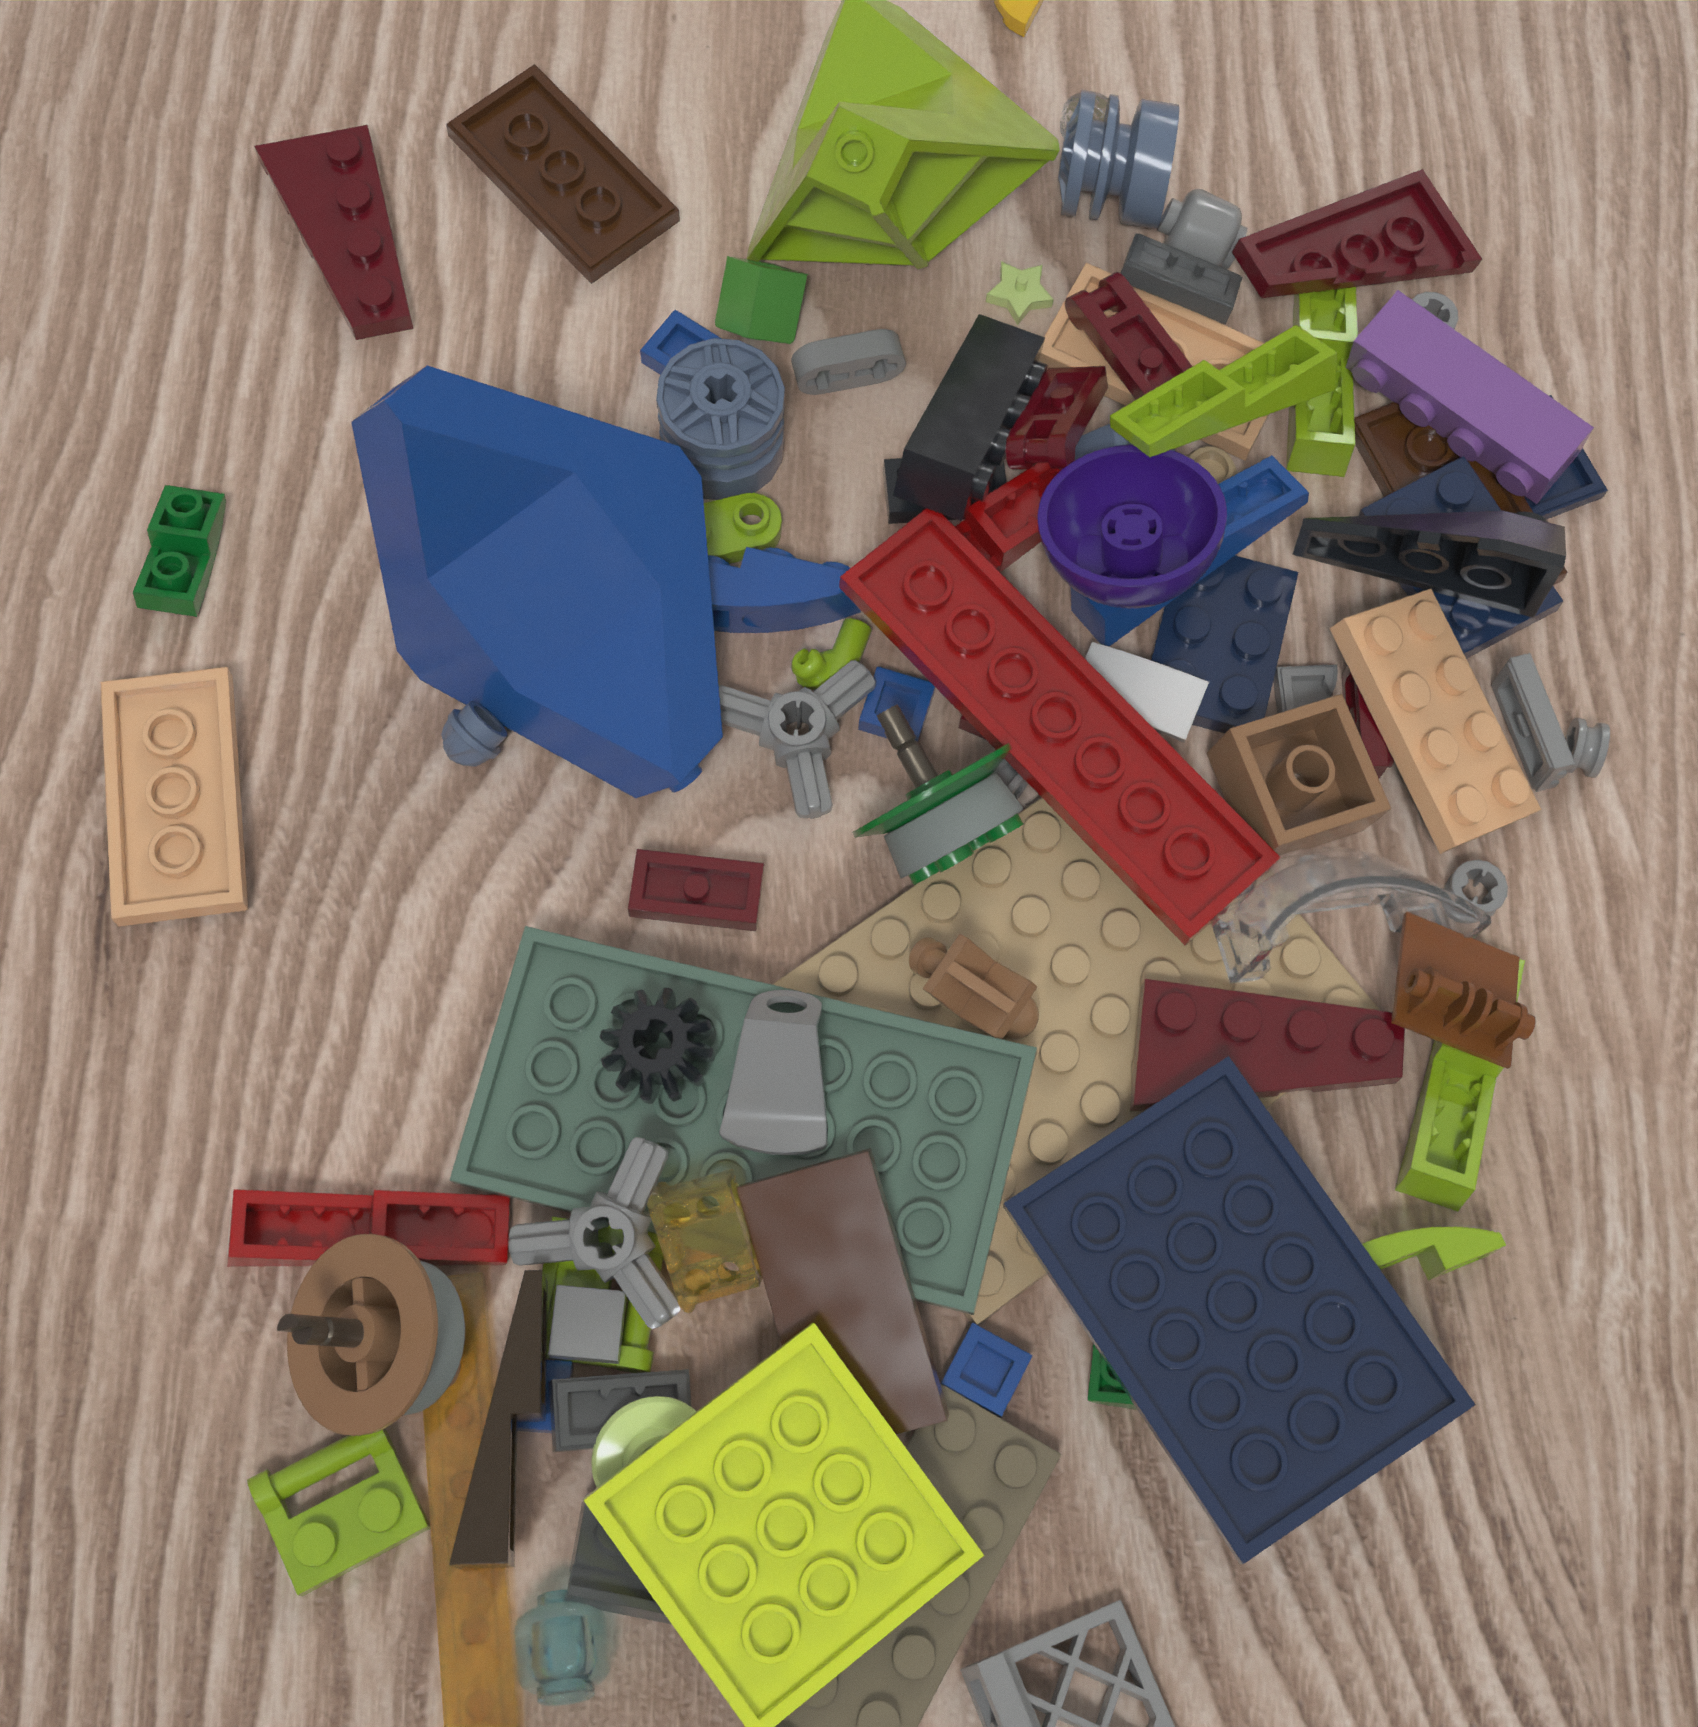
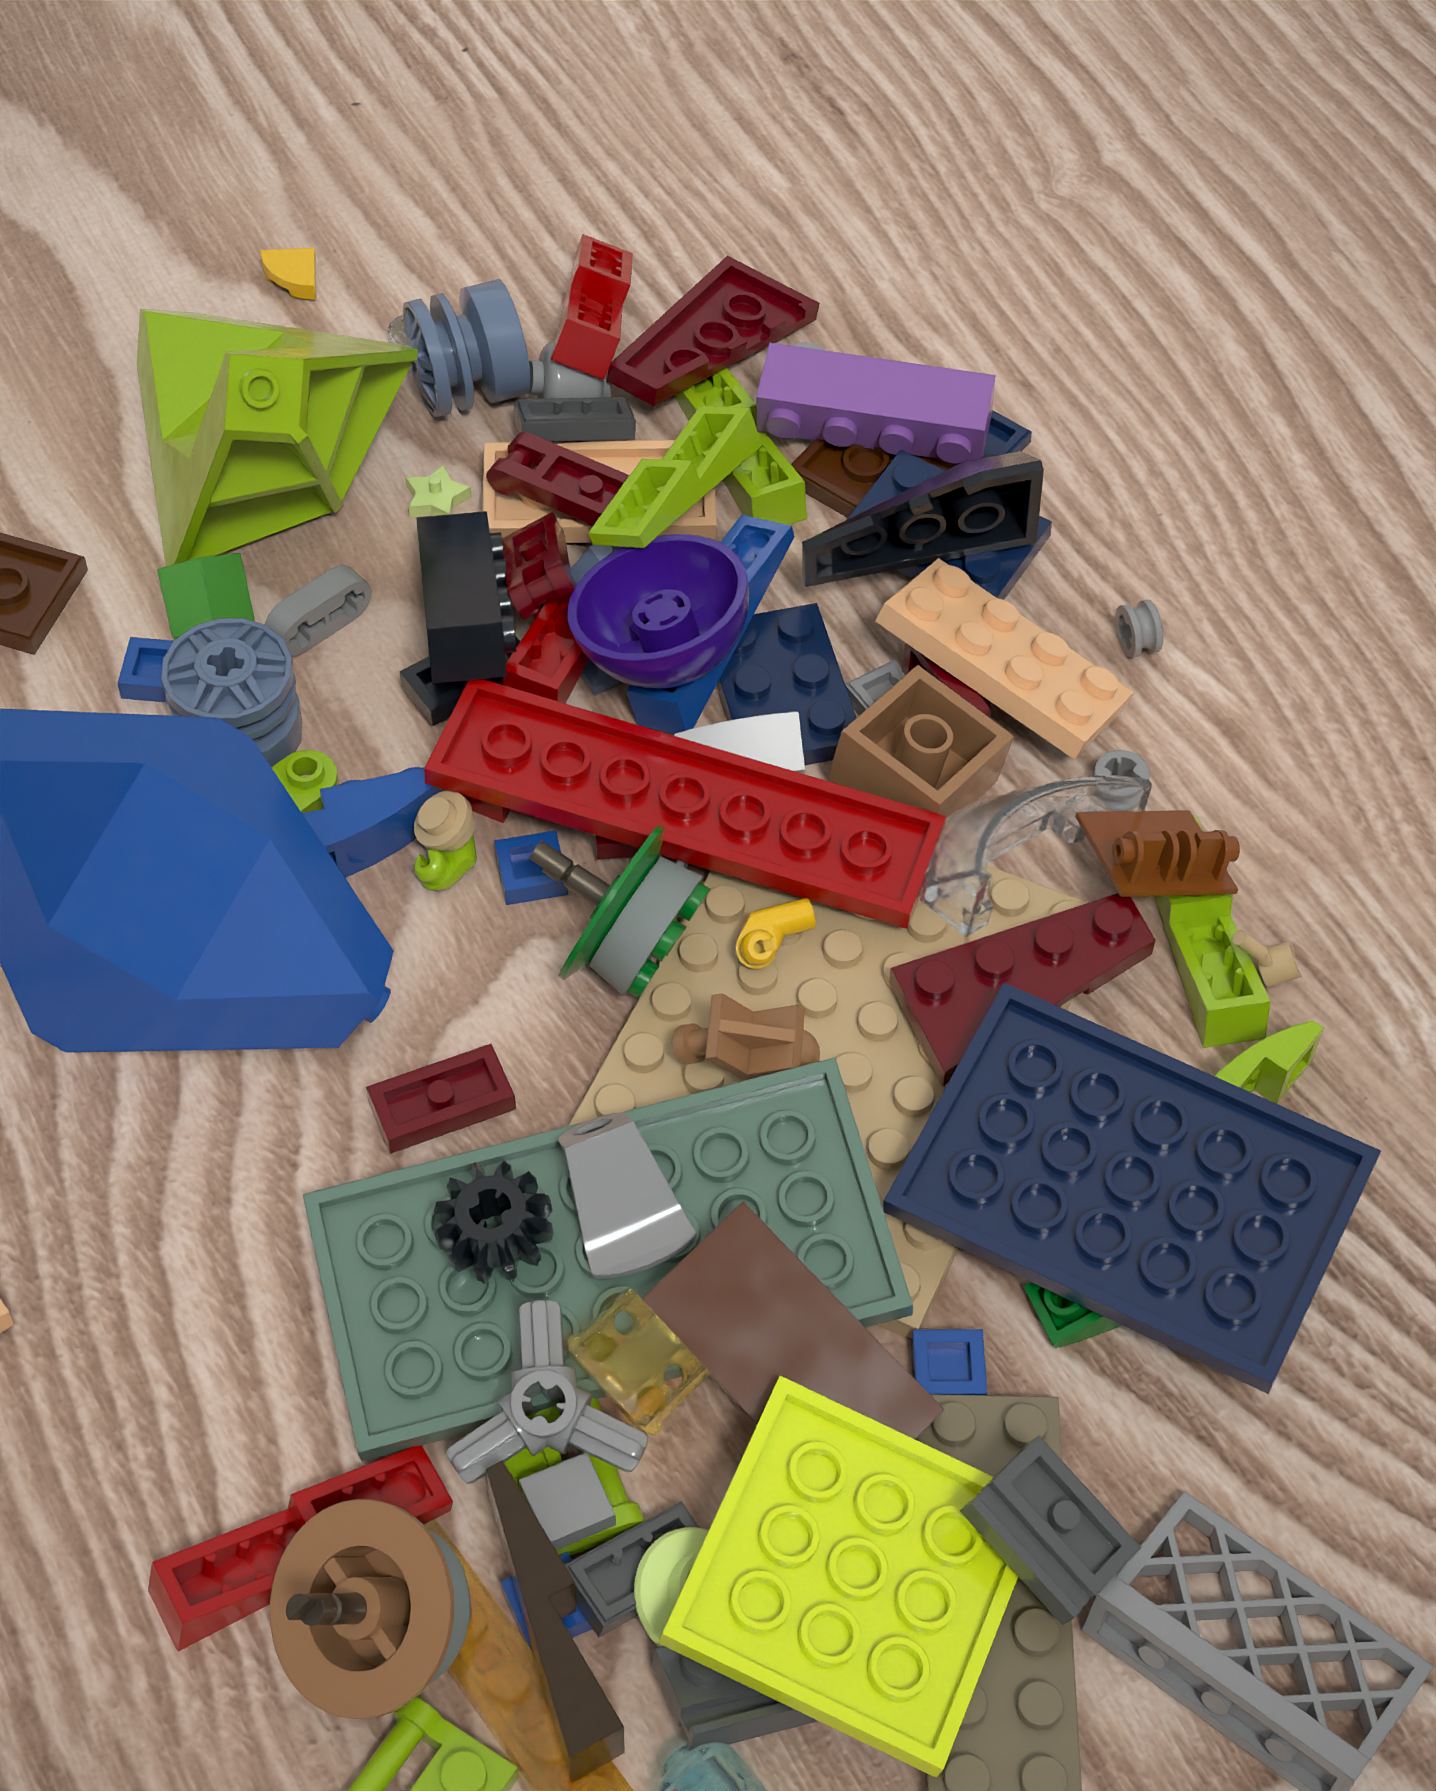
camera: 25 degrees left, 15 degrees down
(472, 735) = (149, 1070): sand blue plate -> none
(804, 753) = (457, 923): light grey bush -> none
(839, 630) = (445, 822): none -> tan plate
(967, 1588) = (1050, 1530): none -> dark grey plate
(1057, 882) = (766, 929): none -> yellow arm
(1262, 168) = (593, 307): none -> red slope
(1507, 1146) = (1274, 962): none -> tan hand
(1532, 723) = (1084, 626): light grey tile -> none

